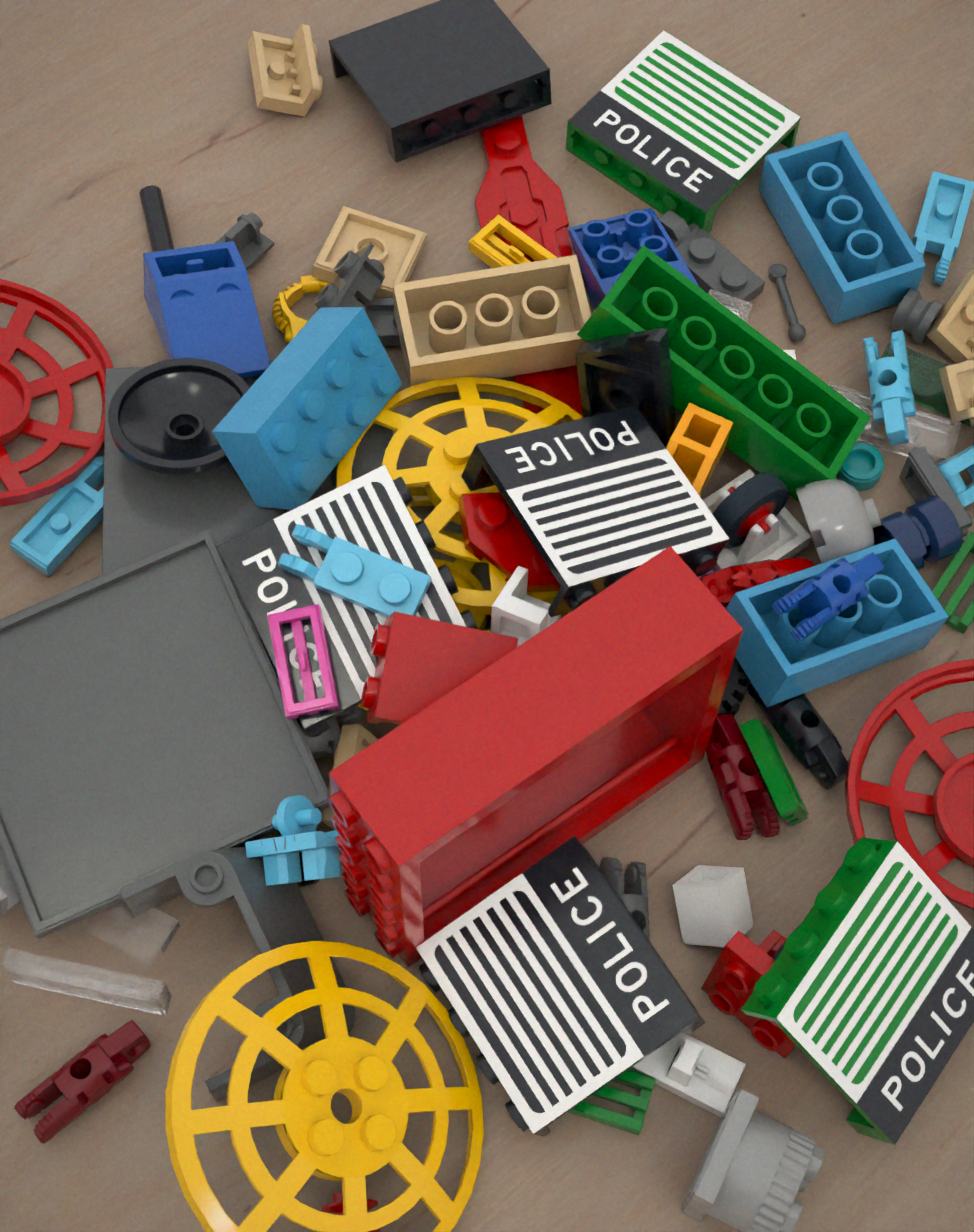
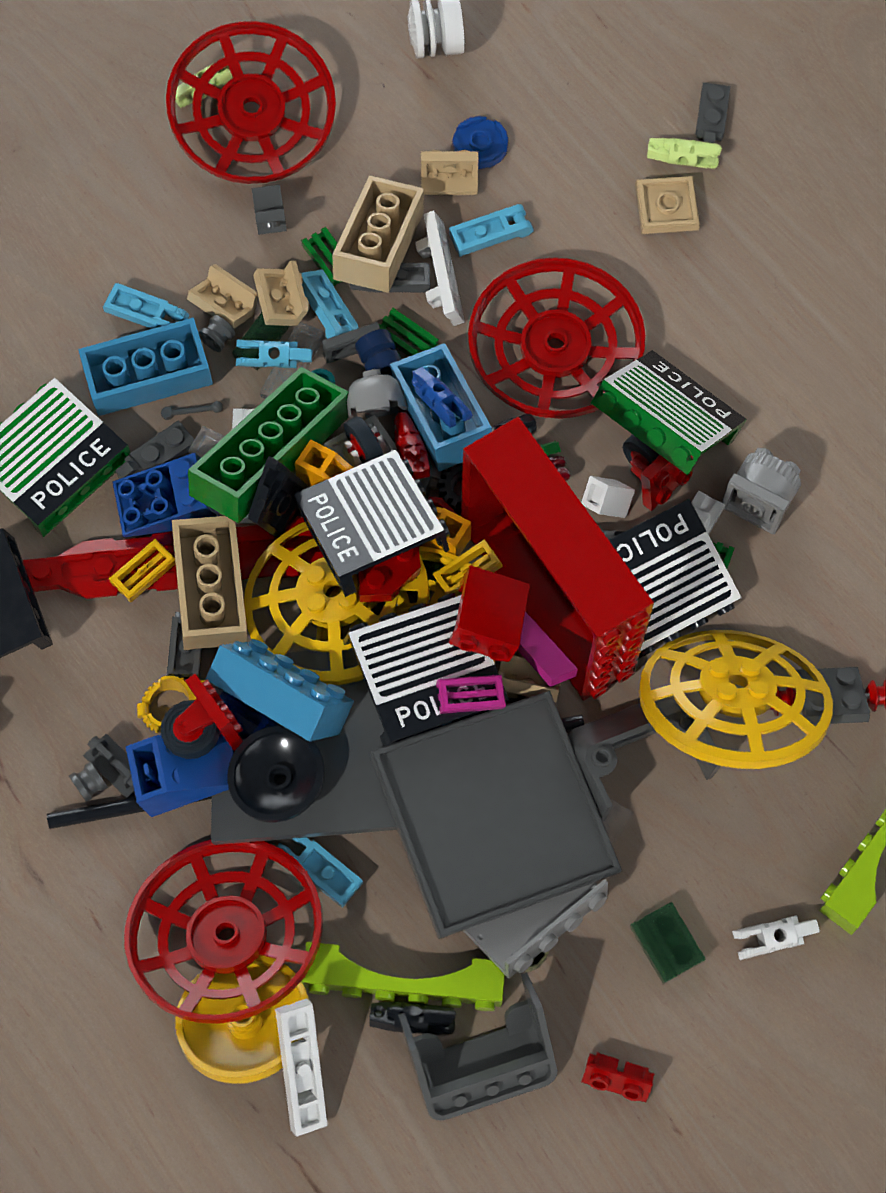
camera: 85 degrees left, 5 degrees up
(84, 1079) = (694, 833): dark red hinge -> none
(87, 981) = (645, 846): clear tile -> none
(198, 222) = (88, 781): none -> dark grey wheel
(259, 313) = (195, 725): none -> plate
(297, 824) = (576, 705): medium azure hips -> none
(355, 276) = (166, 675): dark grey hinge -> none
(358, 574) = (422, 652): medium azure hinge -> none
(393, 243) = (126, 667): tan plate -> none
(518, 613) = (444, 568): white panel -> none

